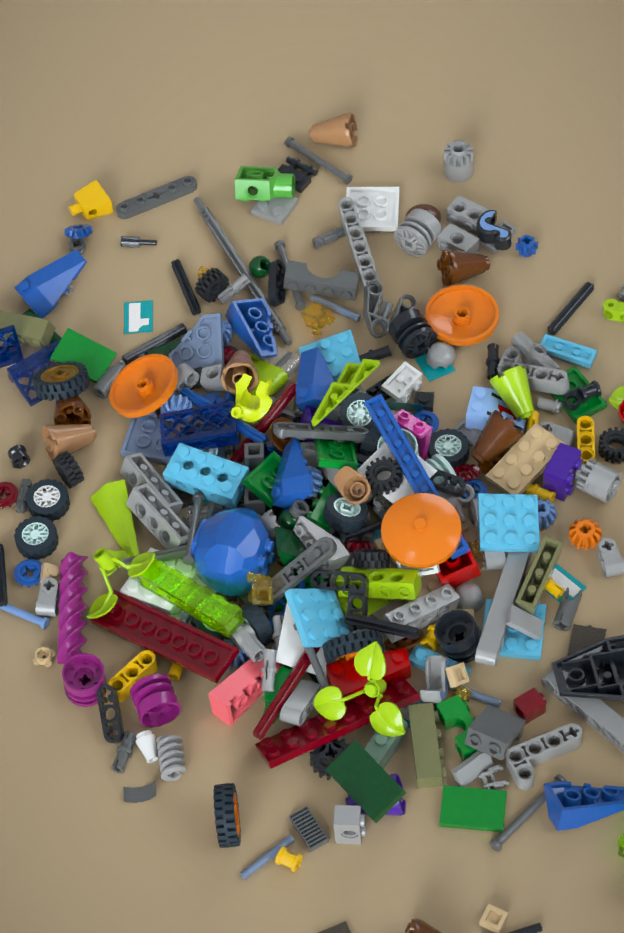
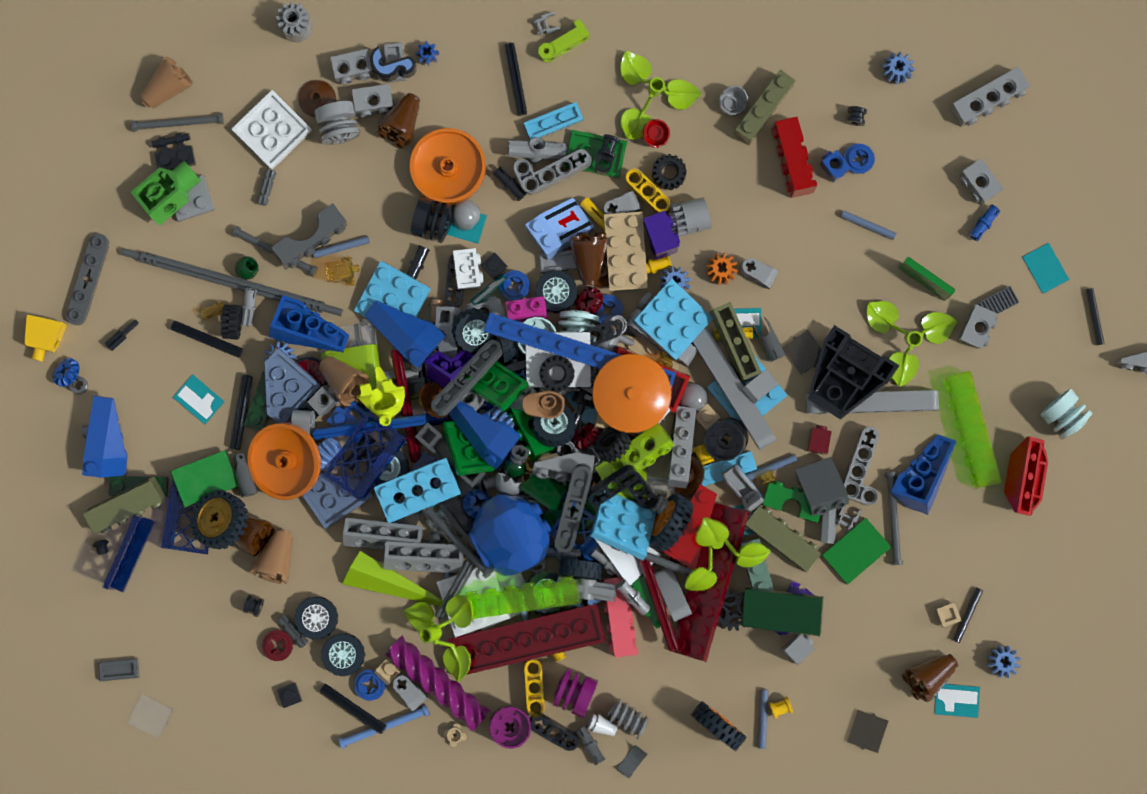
camera: 50 degrees left, 30 degrees up
(68, 469) = (306, 582): black tyre -> none
(262, 589) = (566, 543): clear yellow piece -> none
(276, 276) = (275, 269): black beam -> none
(308, 829) = (768, 673): dark grey tile -> none
(349, 379) = (440, 313): lime wedge -> none
(358, 242) = (303, 174): light grey beam -> none
(371, 304) = (395, 219): dark grey connector -> none
(381, 626) = (676, 490): black axle -> none
(457, 674) = (753, 469): tan plate -> none
(515, 391) = (561, 201): lime cone -> none
(549, 405) = (588, 182): light grey pin -> none

